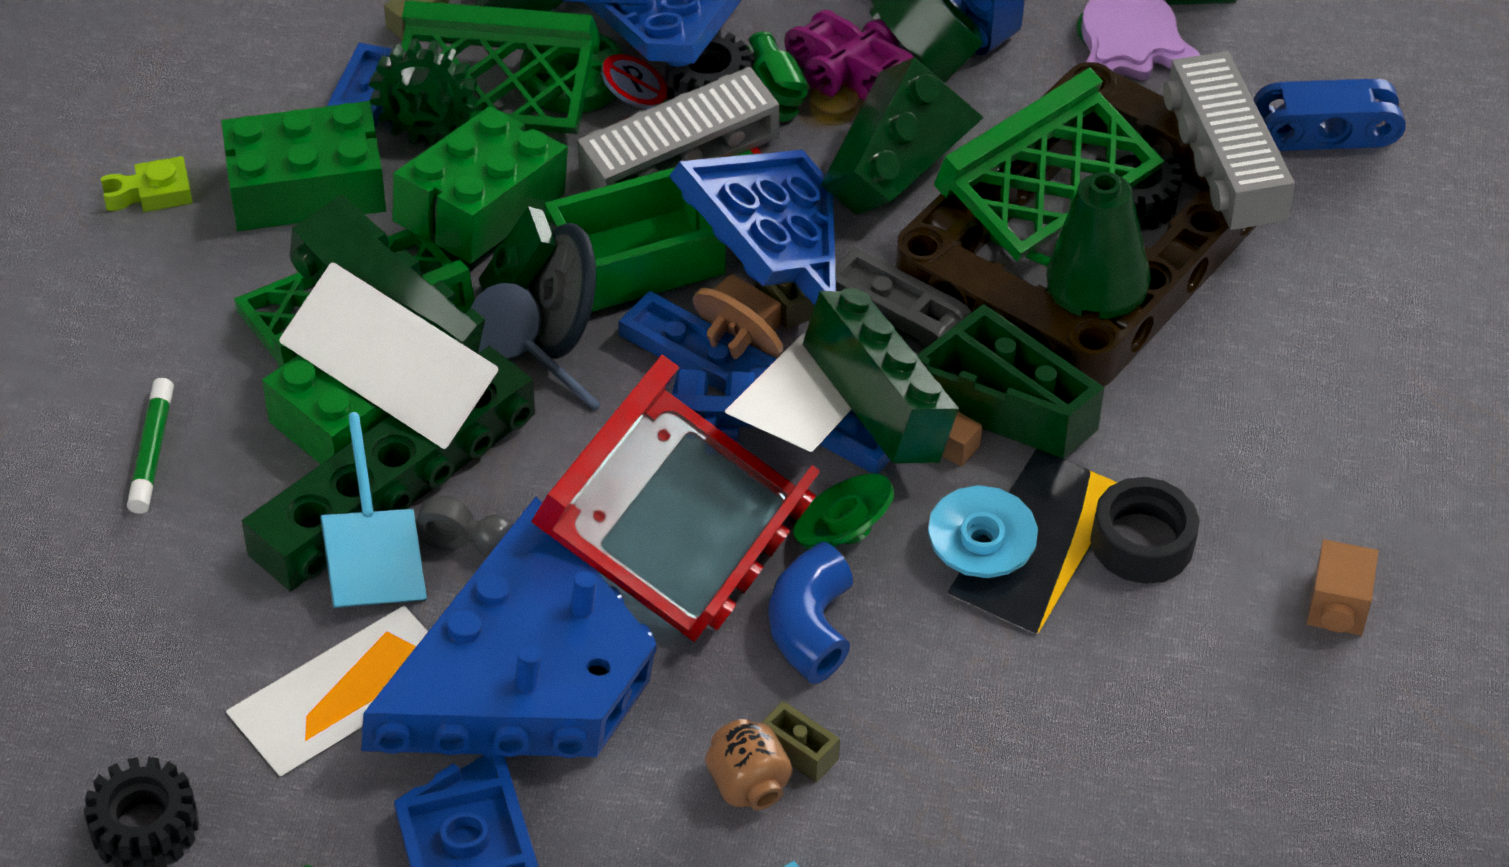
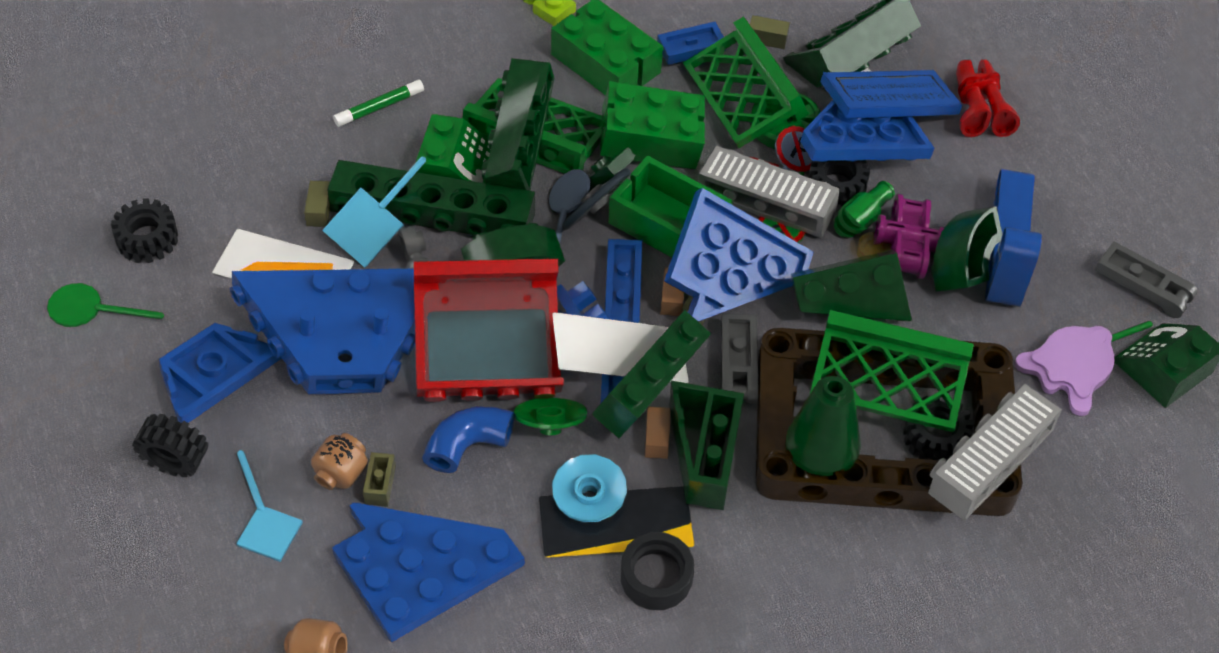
camera: 55 degrees right, 5 degrees up
(275, 592) = (317, 204): none -> olive piece
(389, 355) = (477, 150): white sticker -> none
(429, 71) = (692, 62): dark green gear -> none
(561, 420) = (515, 243): none -> dark green brick
(738, 320) = (640, 289): medium nougat piece -> none
(956, 765) = (420, 564): none -> blue wing
(1331, 114) = (1098, 504): blue piece -> none

